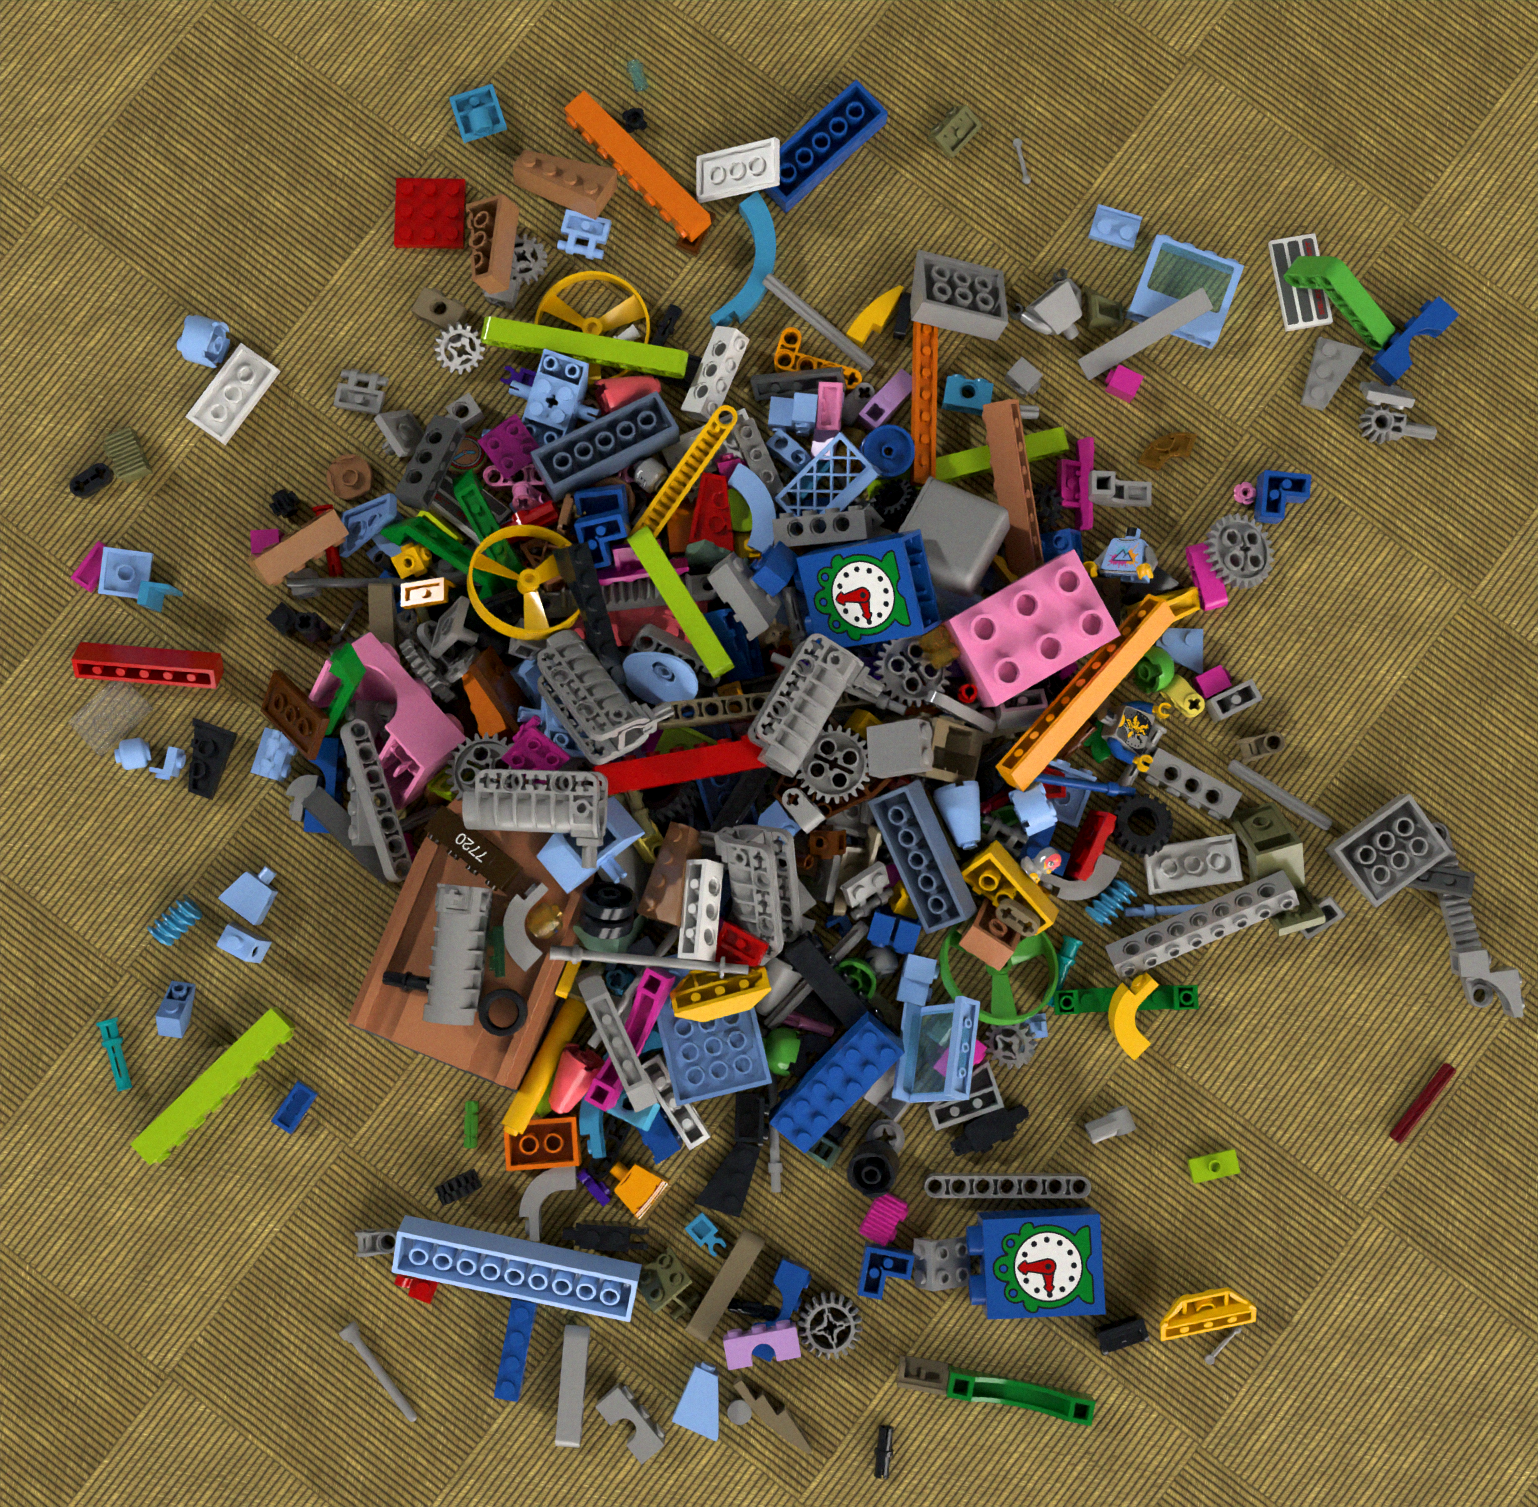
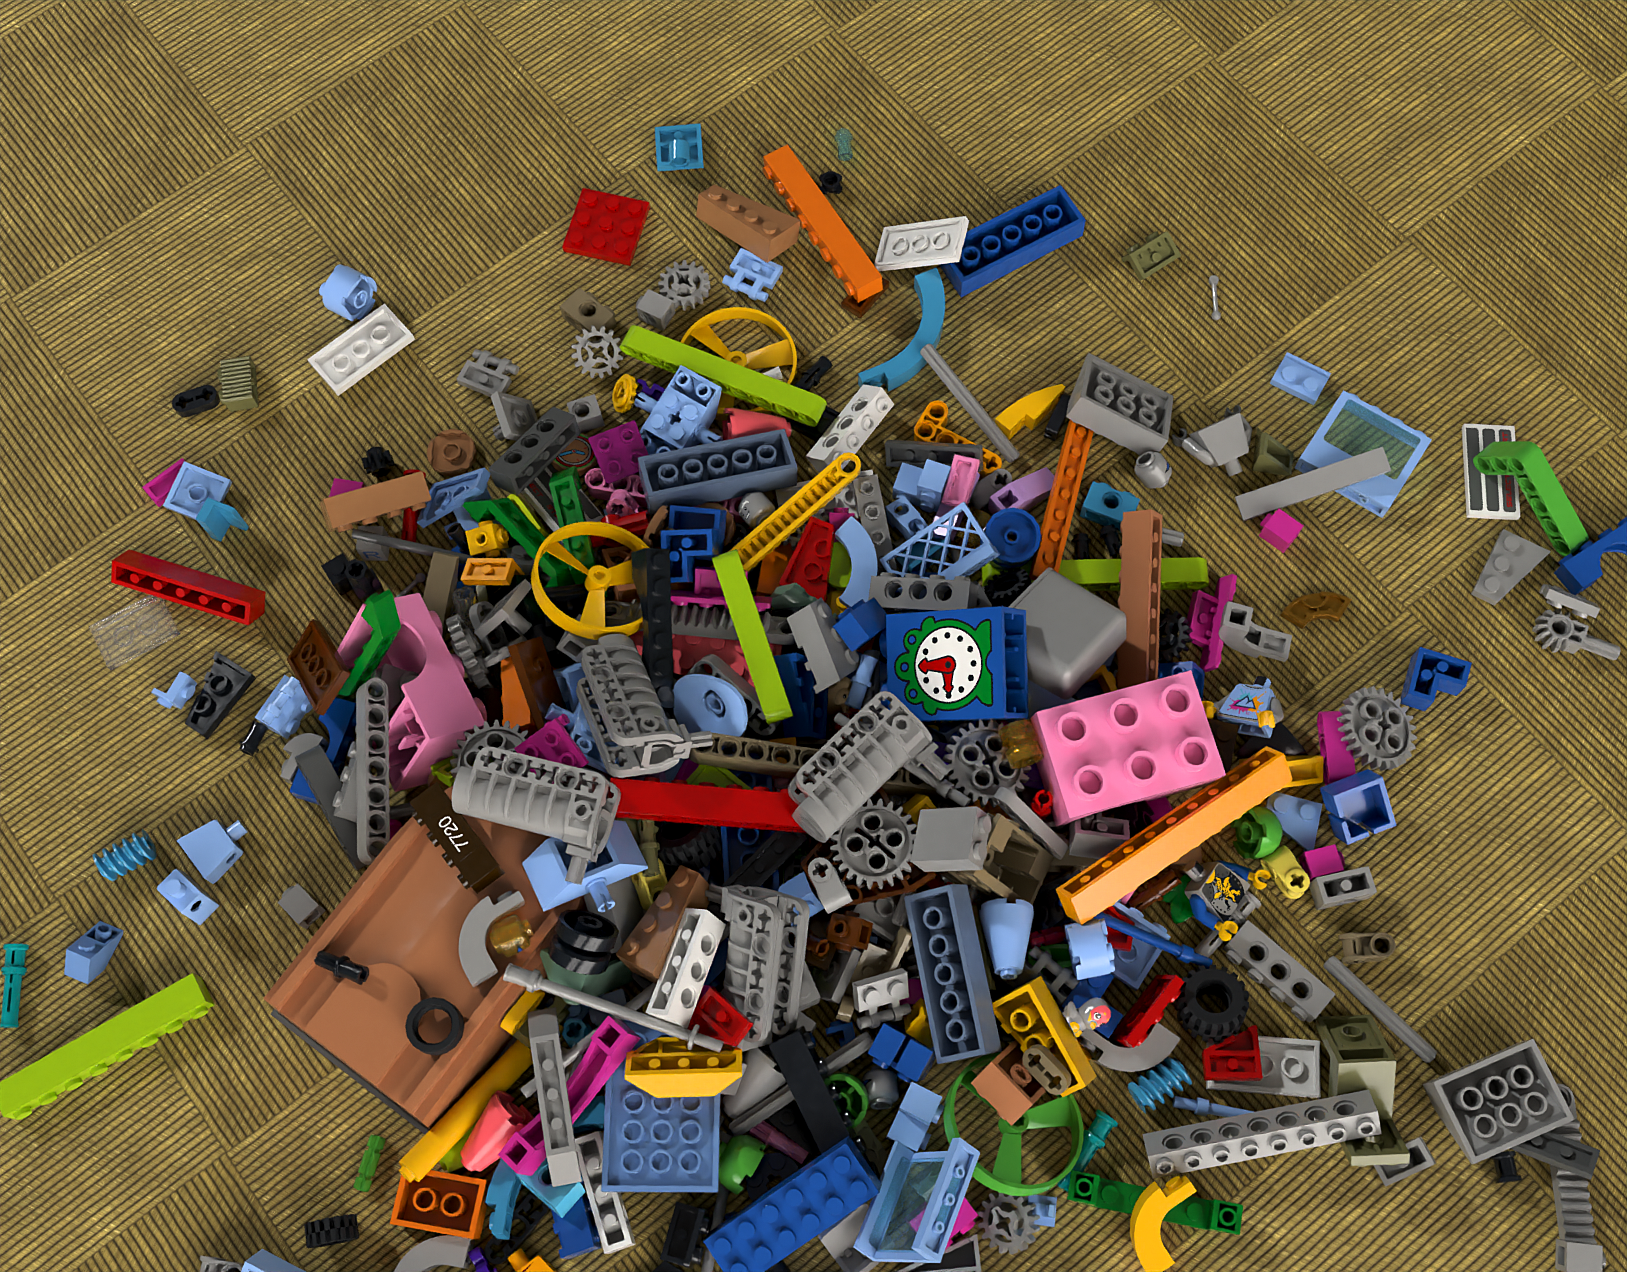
camera: 20 degrees right, 15 degrees down
(133, 753) = (142, 672): light blue head -> none
(253, 790) = (253, 738): none -> black pin
(294, 1107) = (182, 1093): blue plate -> none
(345, 926) = (301, 905): none -> light grey brick
(458, 954) = (406, 943): light grey piece -> none
(492, 241) = (658, 258): medium nougat wedge -> none
(496, 384) = (624, 393): none -> yellow gear
(497, 961) = (445, 966): clear green plate -> none
(785, 619) = (861, 681): none -> light blue pin
(949, 440) = (1081, 546): none -> black pin
(974, 425) = (1111, 539): none -> black pin
(999, 351) = (1153, 470): none -> light grey head
(1023, 378) = (1173, 502): light grey brick -> none
(1168, 866) = (1234, 1058): none -> red wing
(1233, 620) = (1357, 800): none -> blue piece
(1240, 497) = (1391, 677): bright pink plate -> none
(1402, 902) = (1505, 1167): none -> black bush

